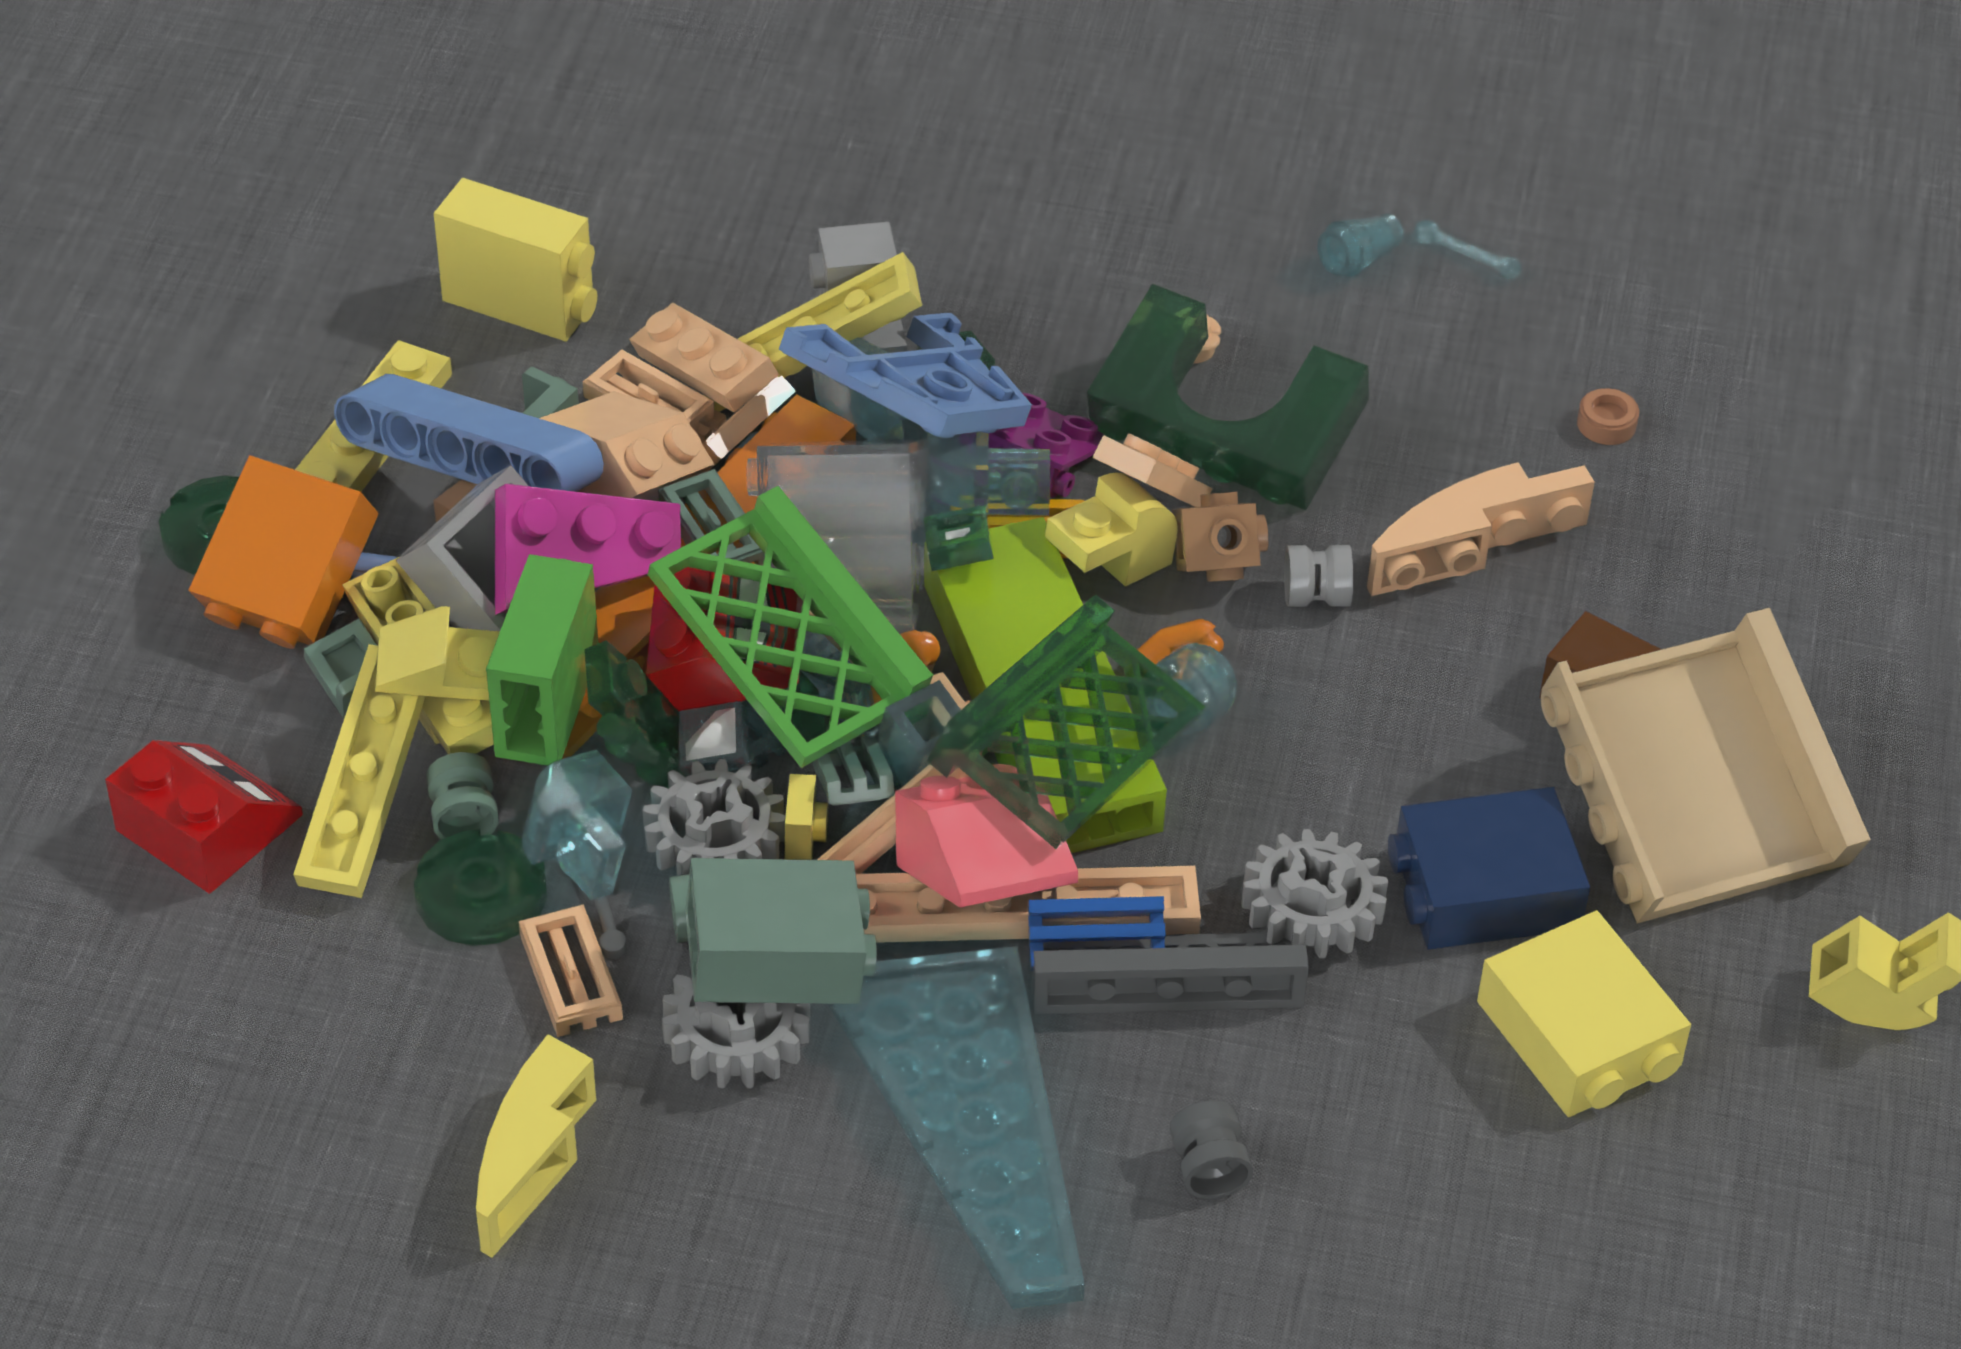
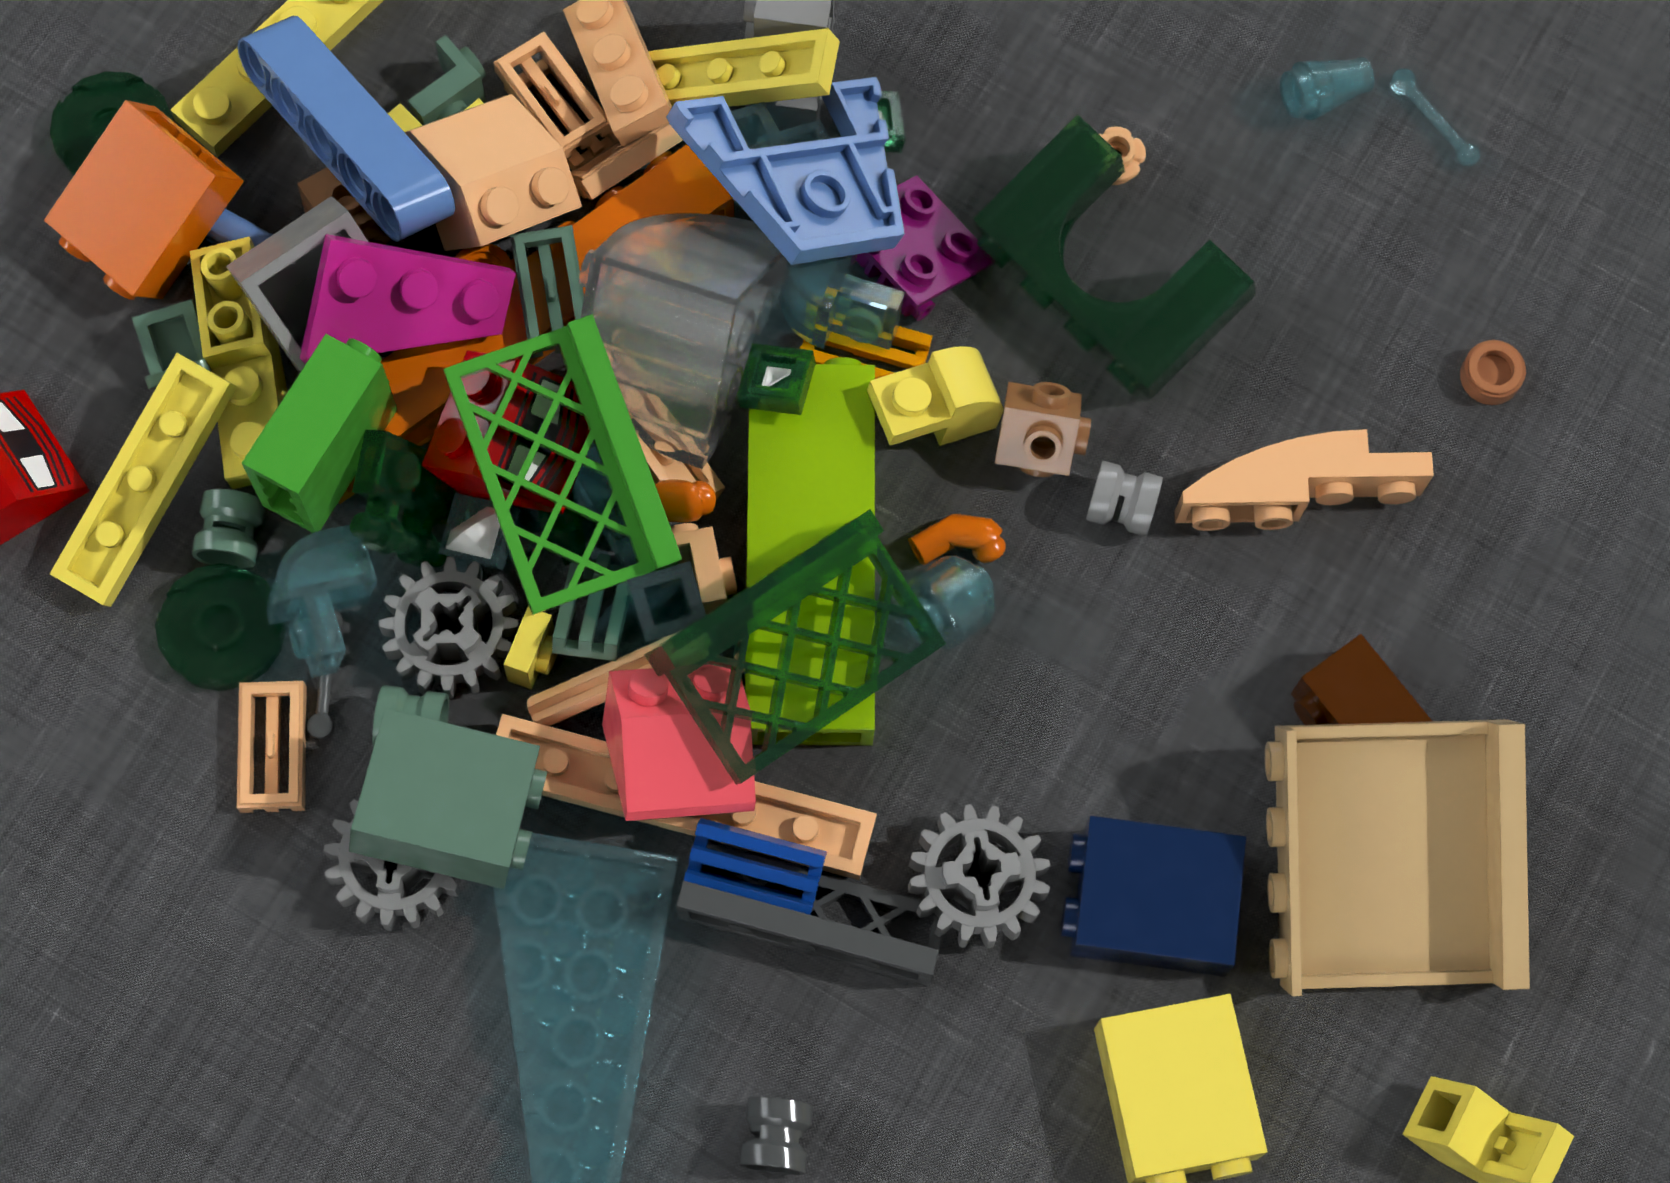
camera: 15 degrees right, 25 degrees up
(433, 659) = (225, 393): light yellow slope -> none
(532, 1139) = (166, 938): light yellow slope -> none
(1153, 467) = (995, 348): light nougat plate -> none

